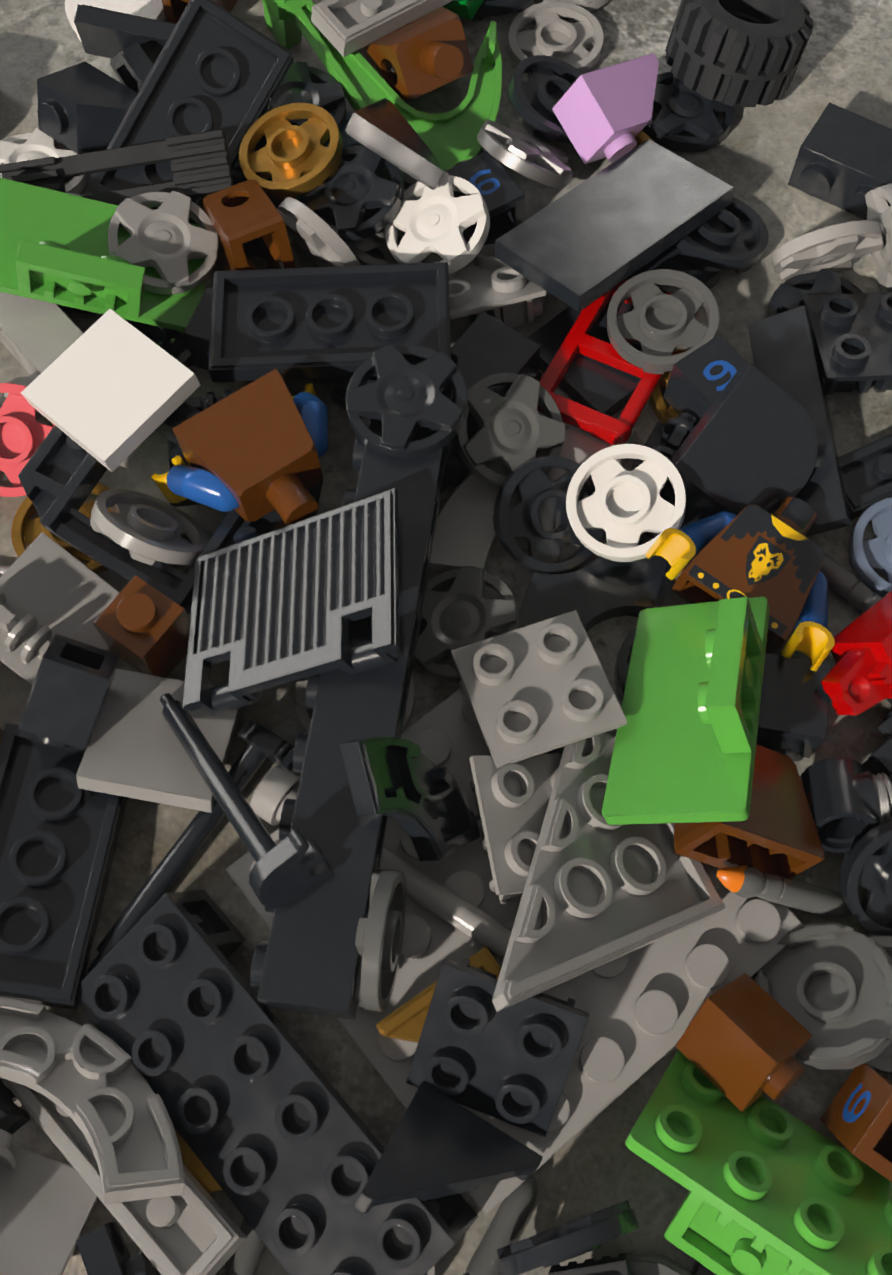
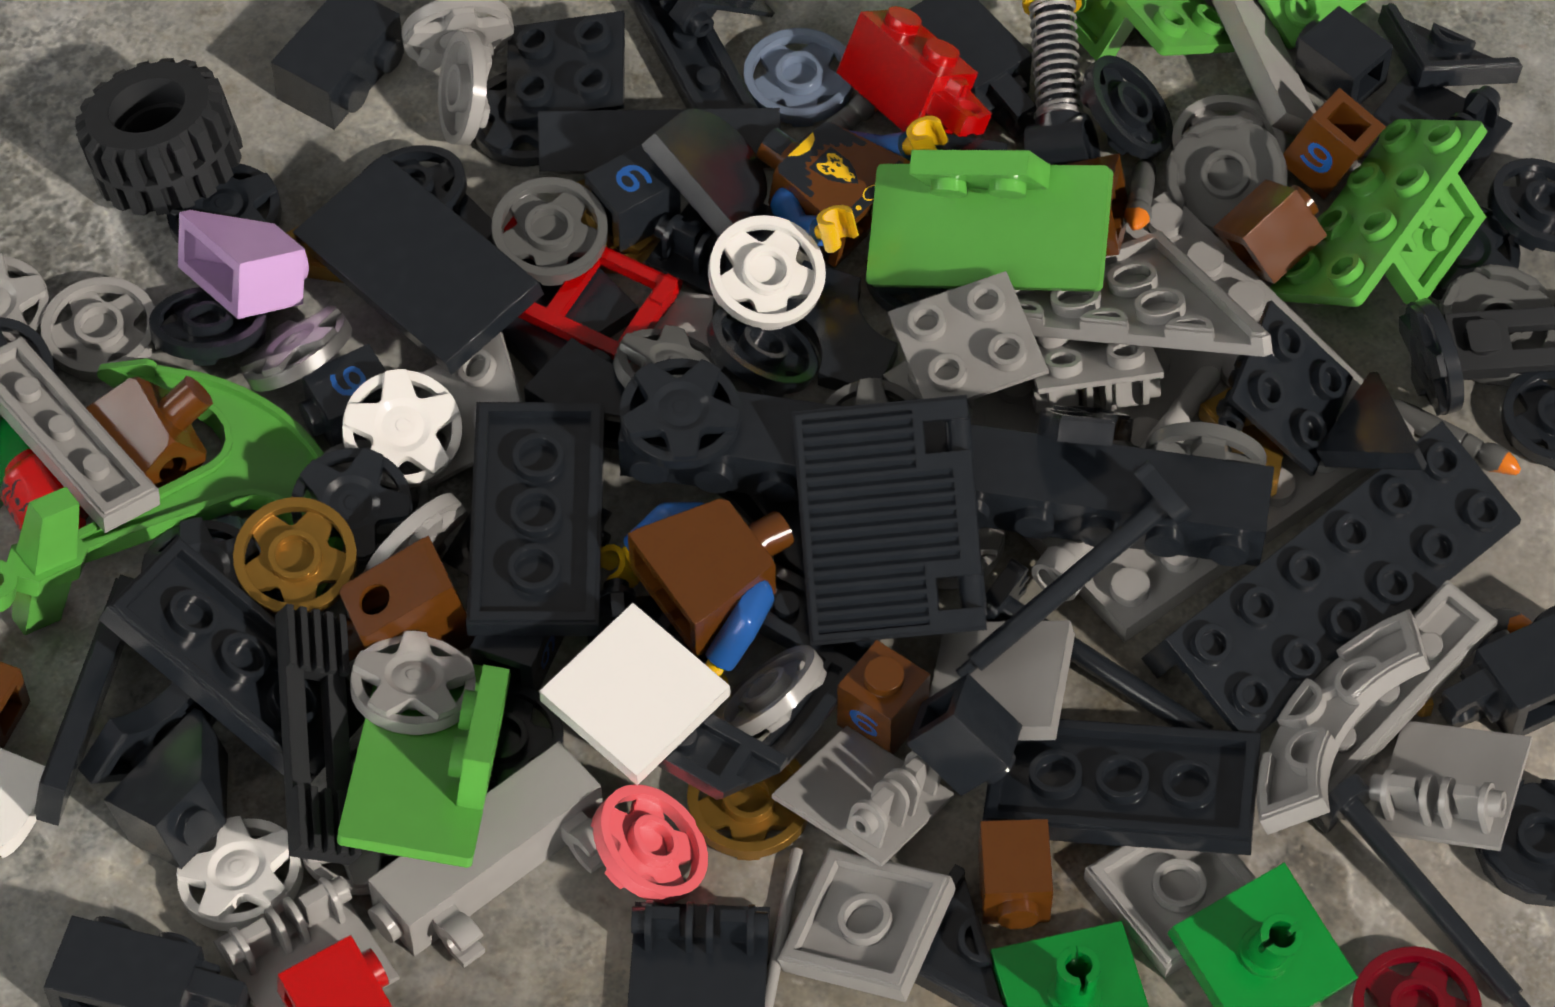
camera: 90 degrees left, 10 degrees down
(393, 138) = (301, 450): tile -> none

